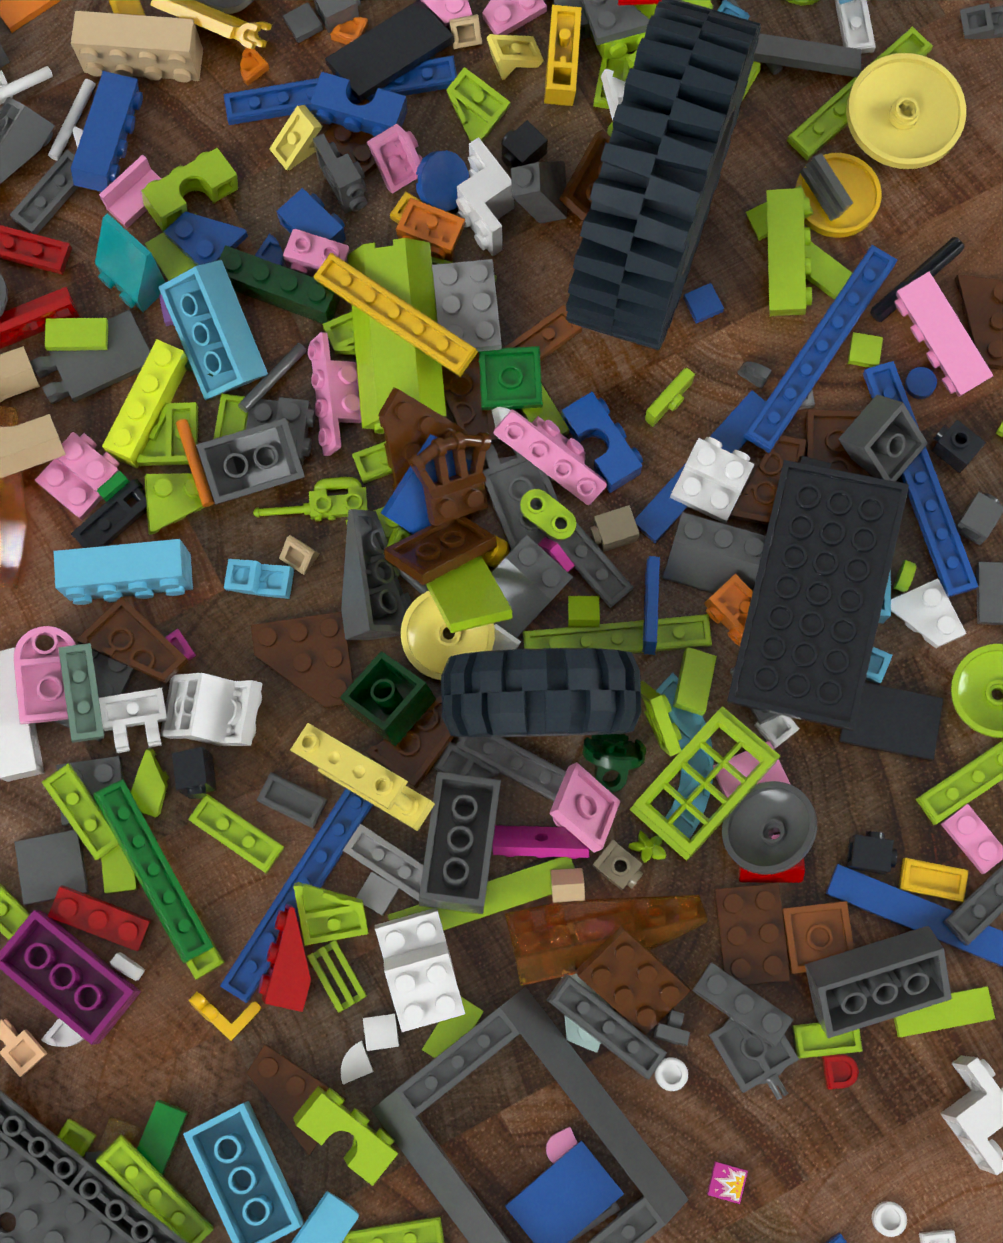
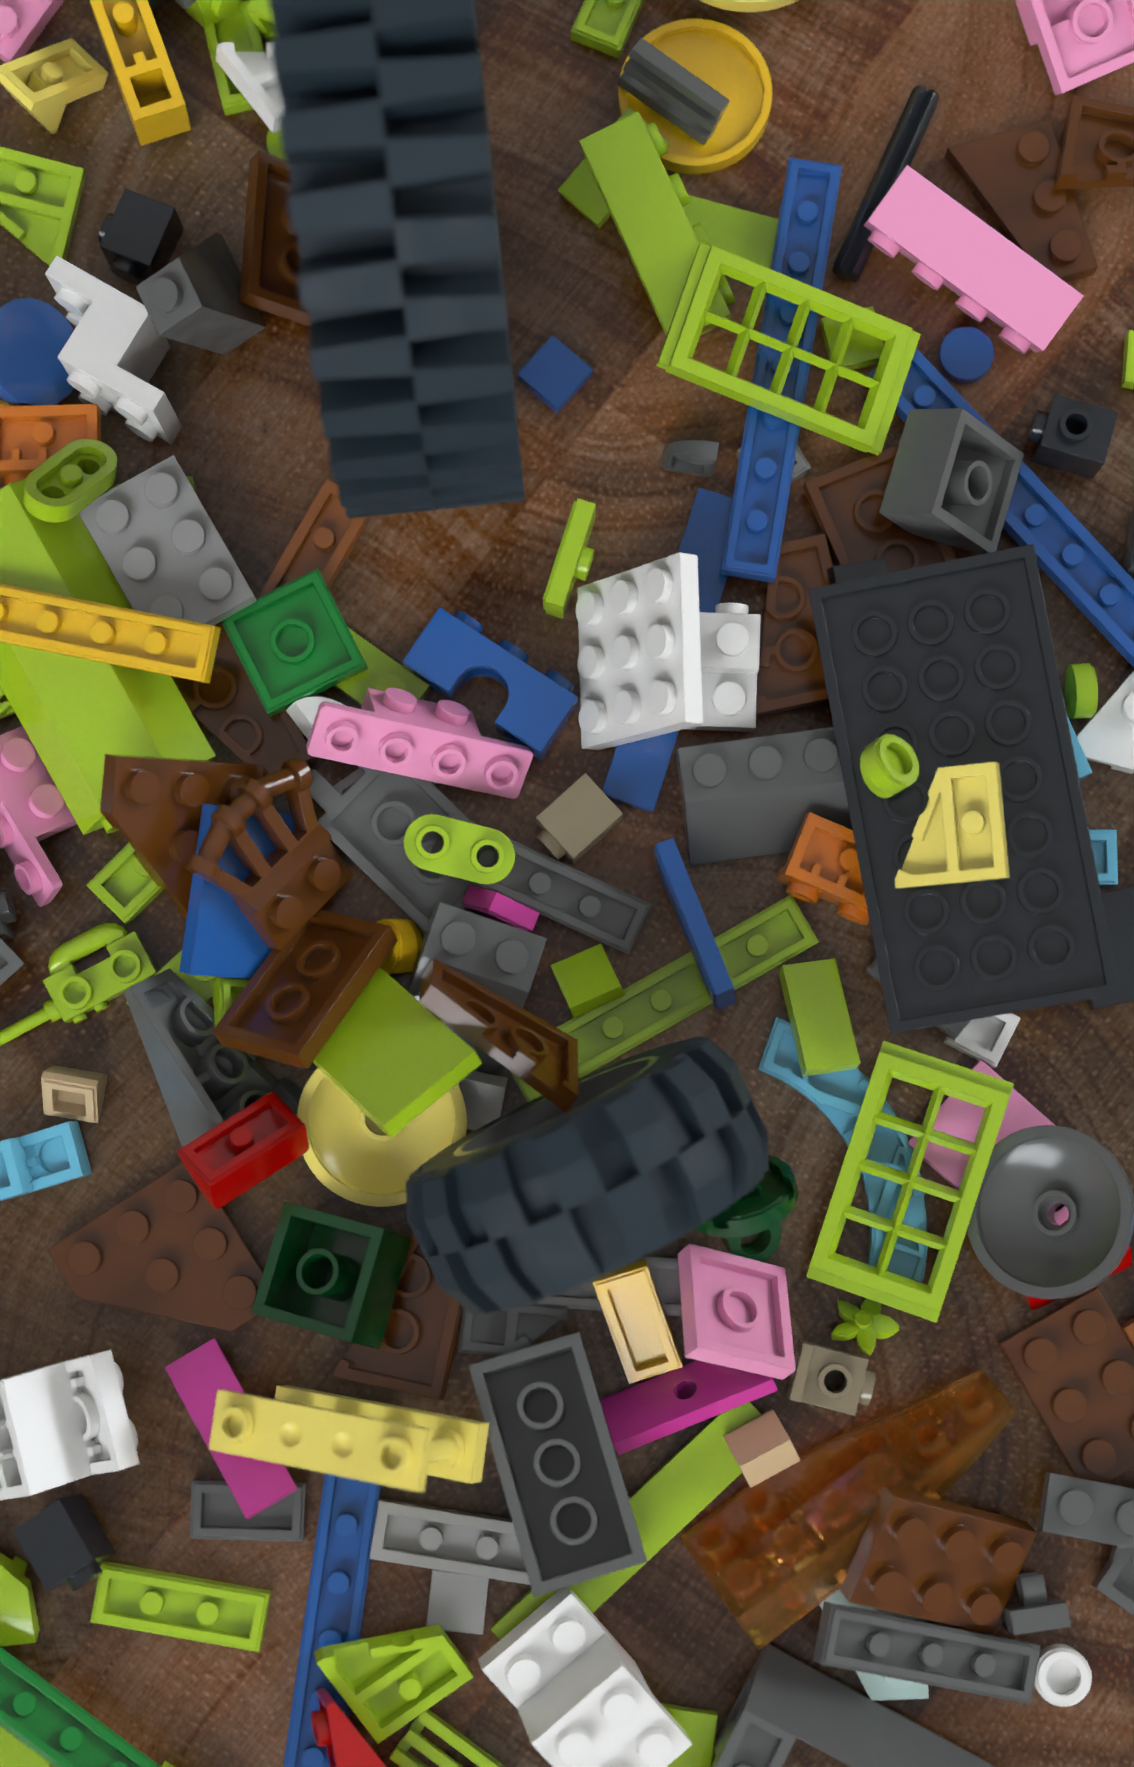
camera: 25 degrees left, 5 degrees up
(303, 776) = (197, 1378): none -> dark pink tile
(374, 614) = (245, 1149): none -> red slope
(435, 249) = (70, 480): none -> lime plate
(528, 608) = (506, 1032): none -> reddish brown wing
(532, 793) = (638, 1321): none -> yellow tile
(659, 720) = (782, 1097): lime wing -> none
(683, 456) = (640, 653): none -> white plate
(785, 563) = (888, 765): none -> lime tile
(807, 611) = (959, 831): none -> light yellow wing
(869, 380) = (693, 311): none -> lime piece

